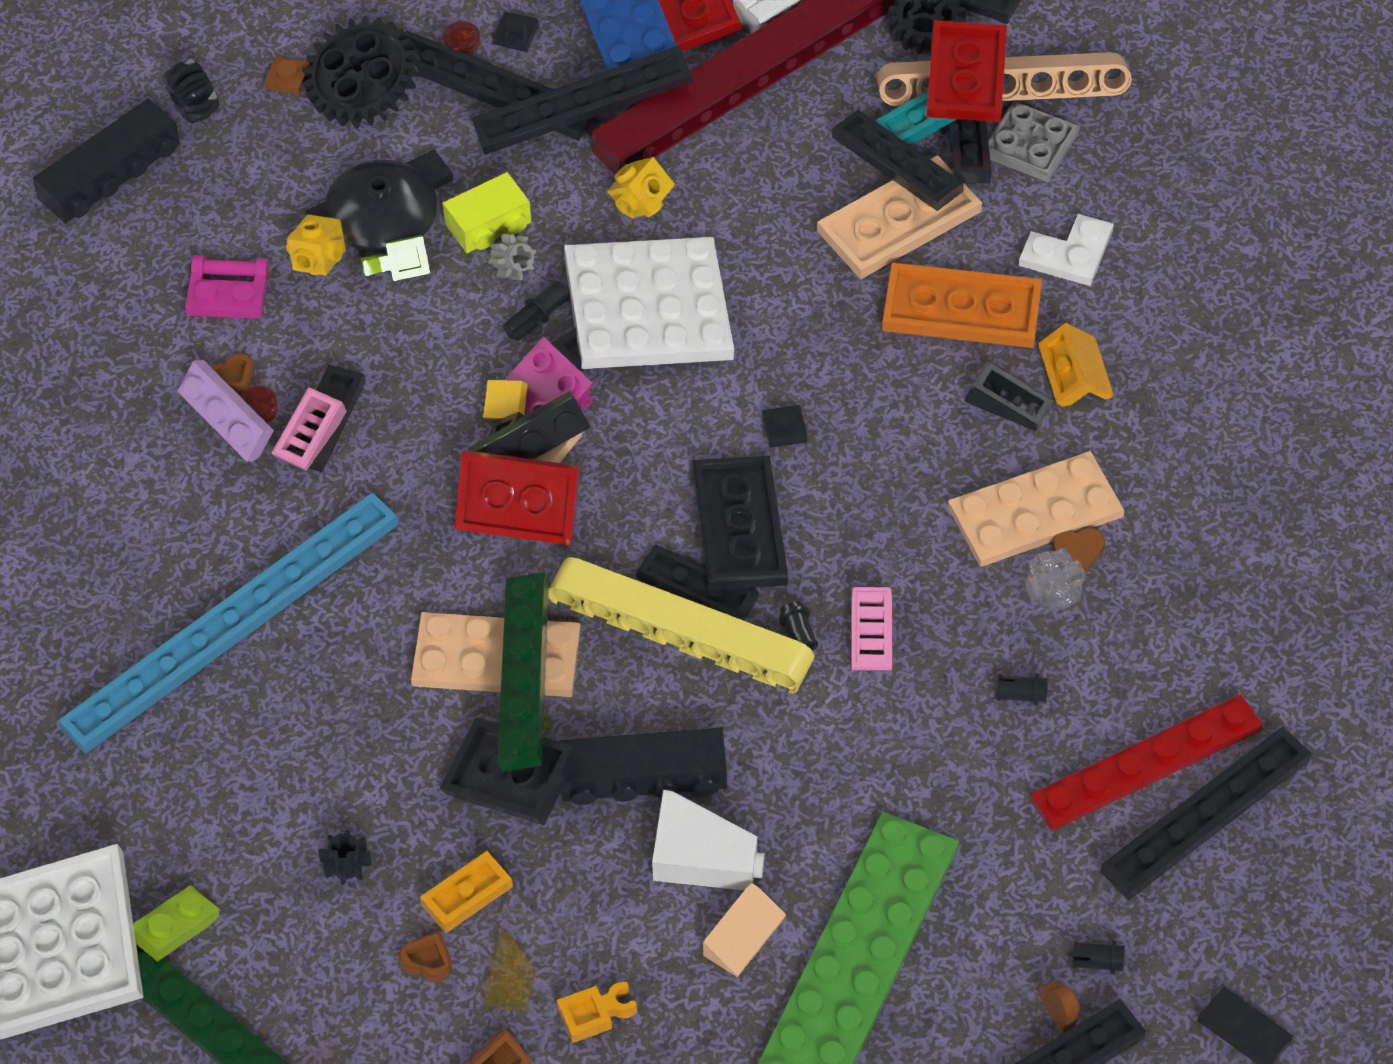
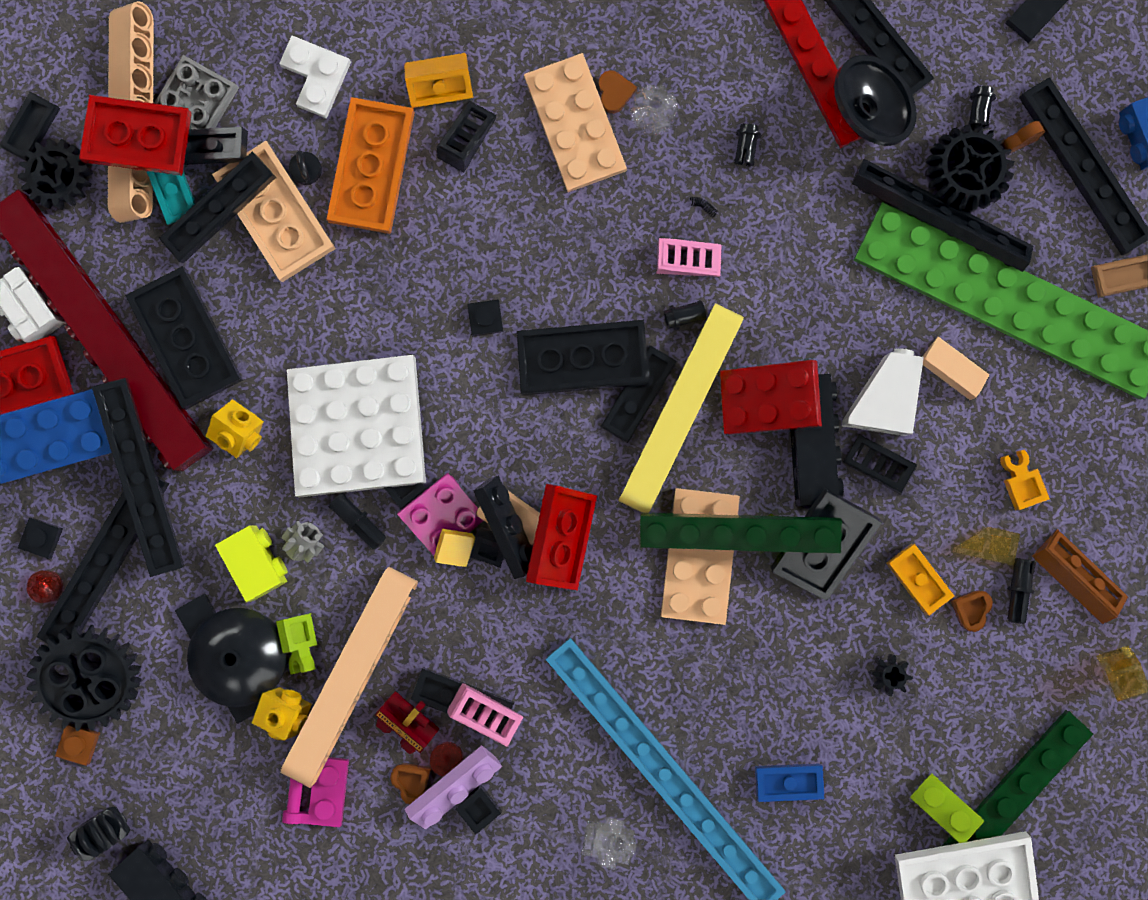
camera: 90 degrees left, 30 degrees up
(155, 546) = (609, 843): none -> clear brick
(197, 437) = (478, 810): none -> black plate
(215, 752) = (789, 782): none -> blue plate
(302, 362) = (407, 722): none -> dark red hips
(358, 304) = (349, 677): none -> light nougat beam
(450, 1009) = (1020, 590): none -> black axle
(602, 871) = (900, 485): none -> black slope
(694, 708) = (771, 397): none -> red plate
(745, 142) = (184, 338): none -> black plate
(943, 641) = (696, 200): none -> black leg
(945, 910) = (934, 211): none -> black plate
(955, 245) = (305, 168): none -> black tile
(1035, 921) = (963, 142): none -> black gear
(1107, 797) = (875, 100): none -> black dish

